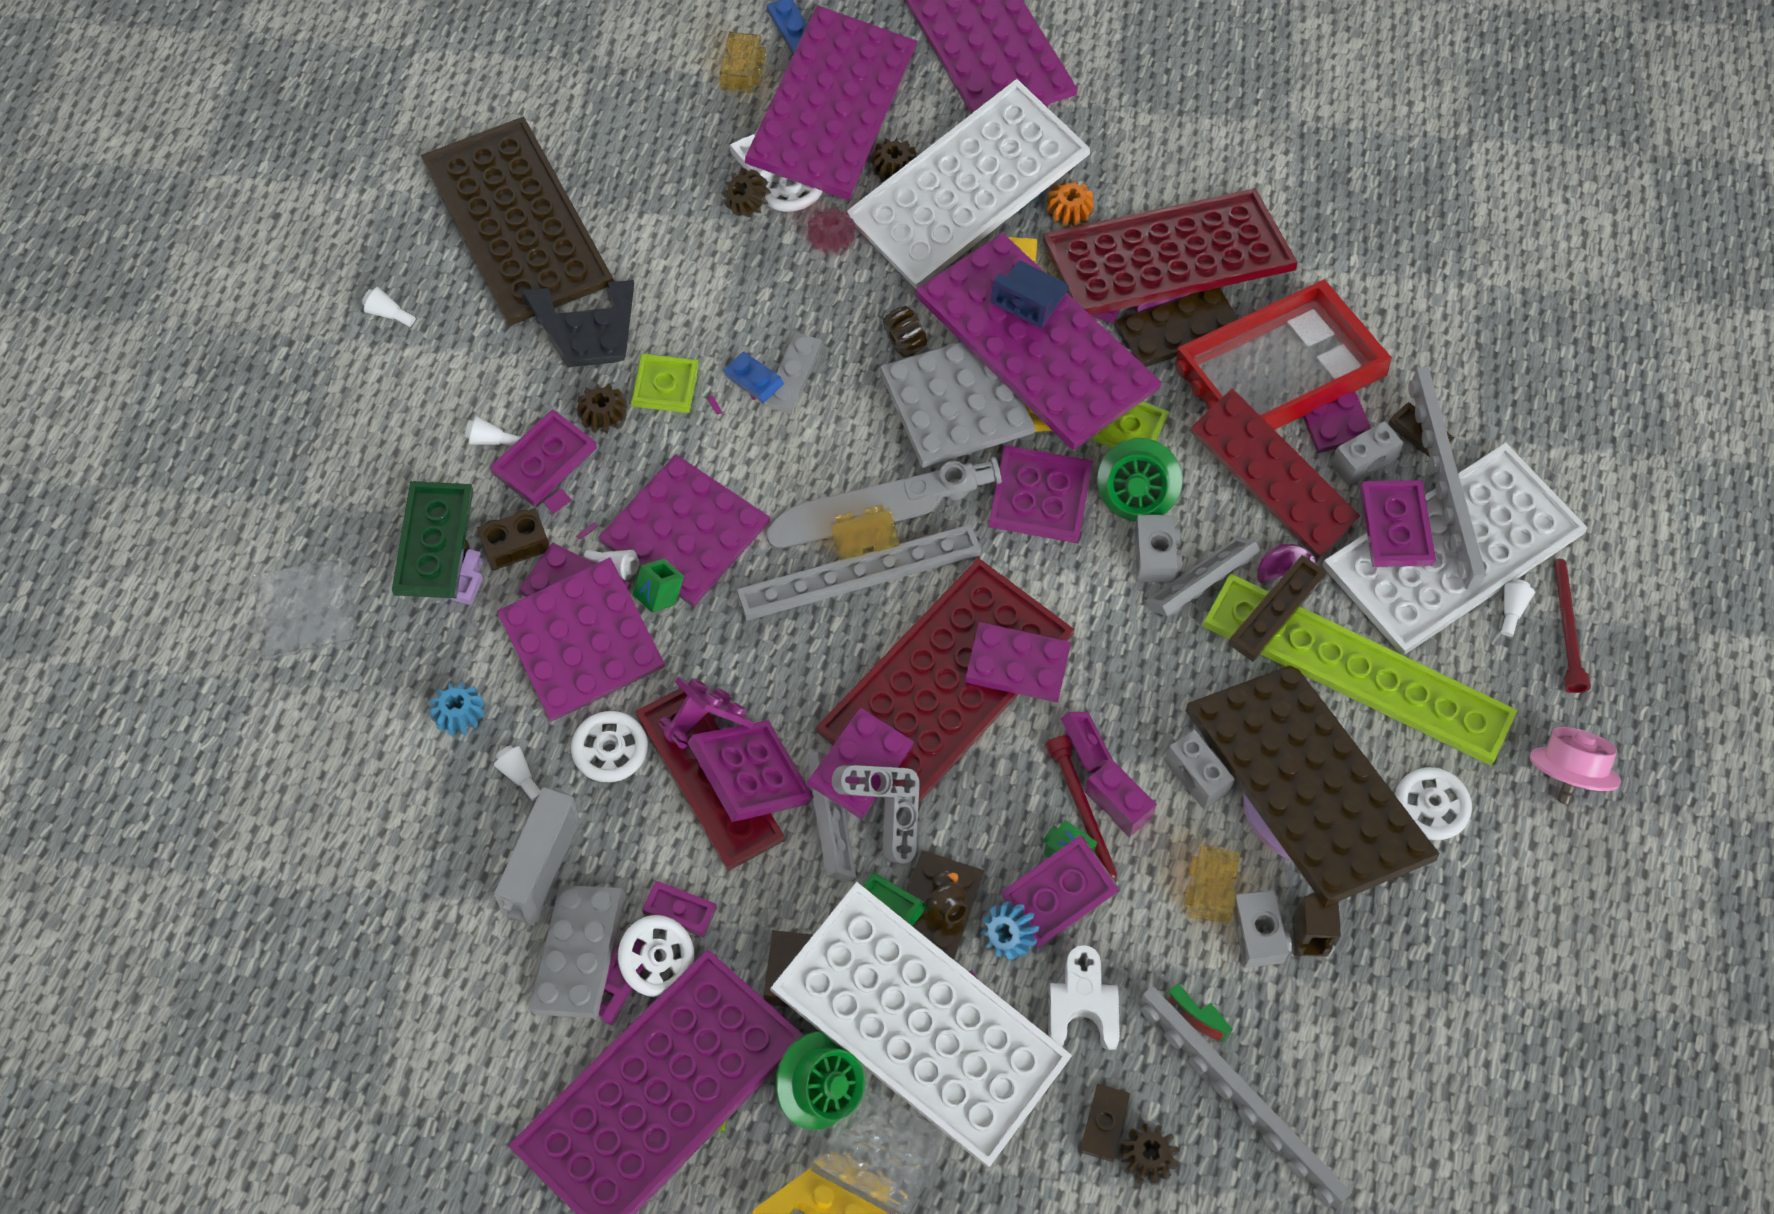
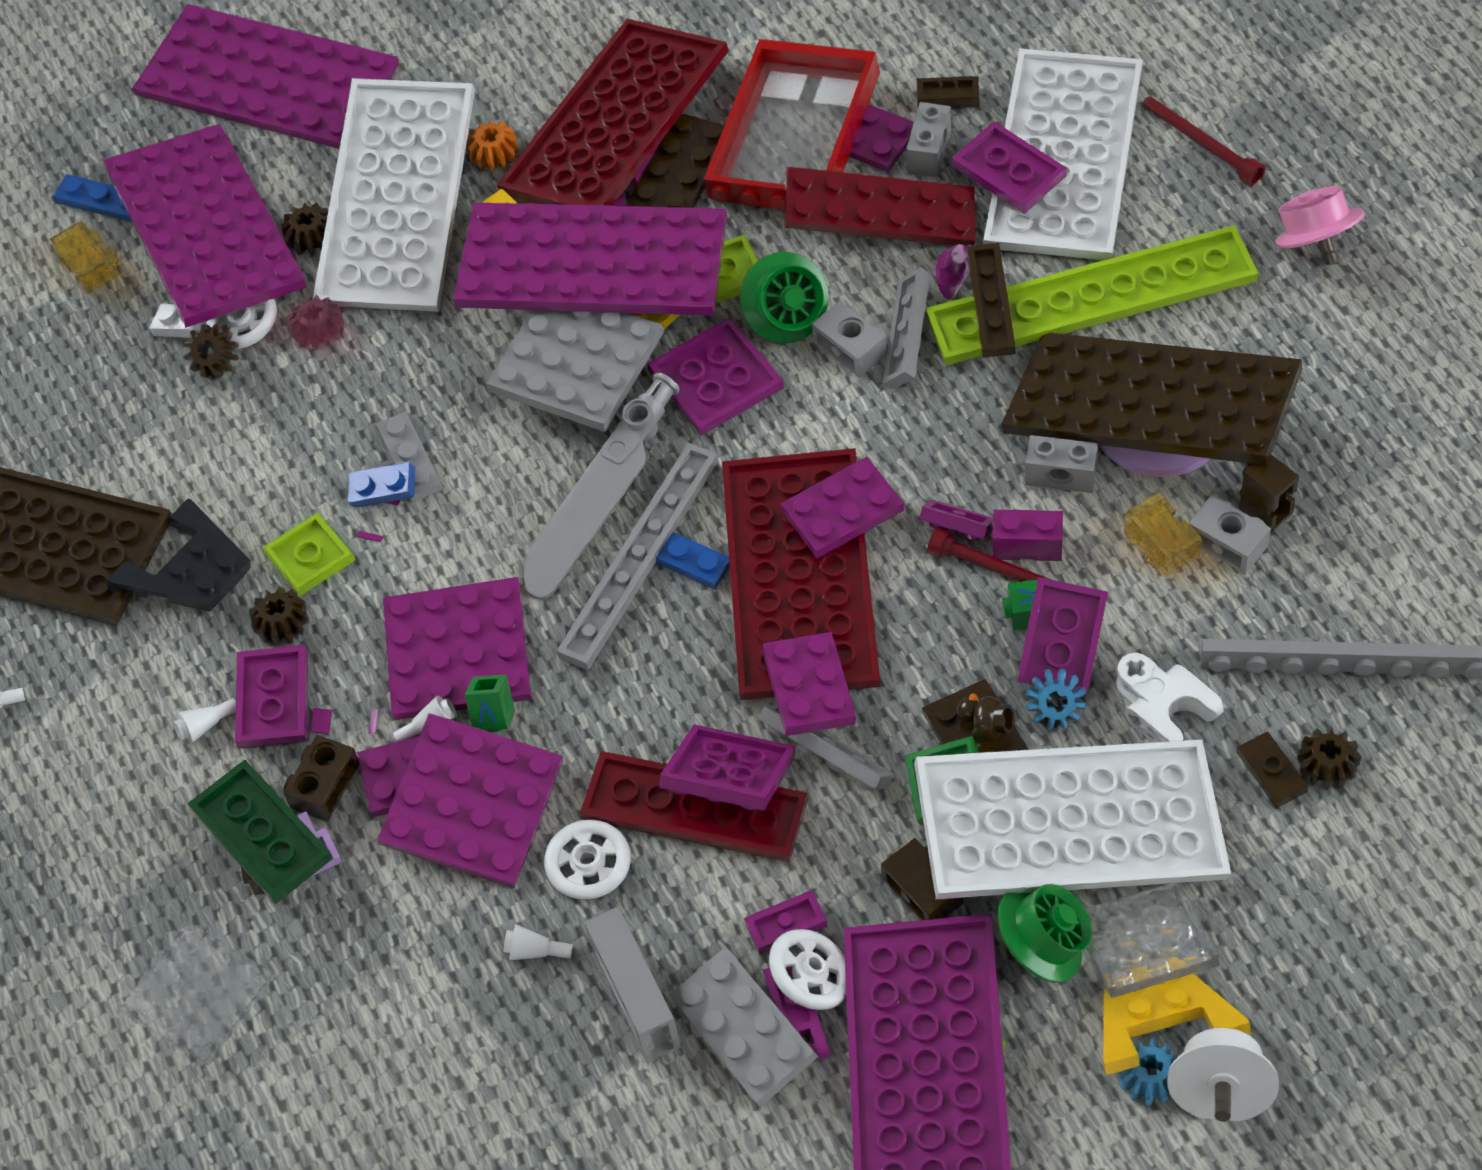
camera: 35 degrees left, 5 degrees down
(465, 714) = (440, 945): dark azure gear -> none
(696, 705) = (634, 759): magenta plate -> none
(864, 531) = (607, 524): clear yellow brick -> none
(890, 608) = (693, 560): none -> blue plate
(895, 797) = (894, 711): light grey beam -> none
(905, 331) = (470, 345): dark brown gear -> none
(1028, 293) = (554, 225): dark blue bracket -> none
(1206, 1020) = (1265, 627): green slope -> none
(1443, 780) = (1237, 320): white plate -> none
(1448, 485) = (1009, 105): light grey plate -> none
(1516, 599) = (1147, 151): white cone -> none

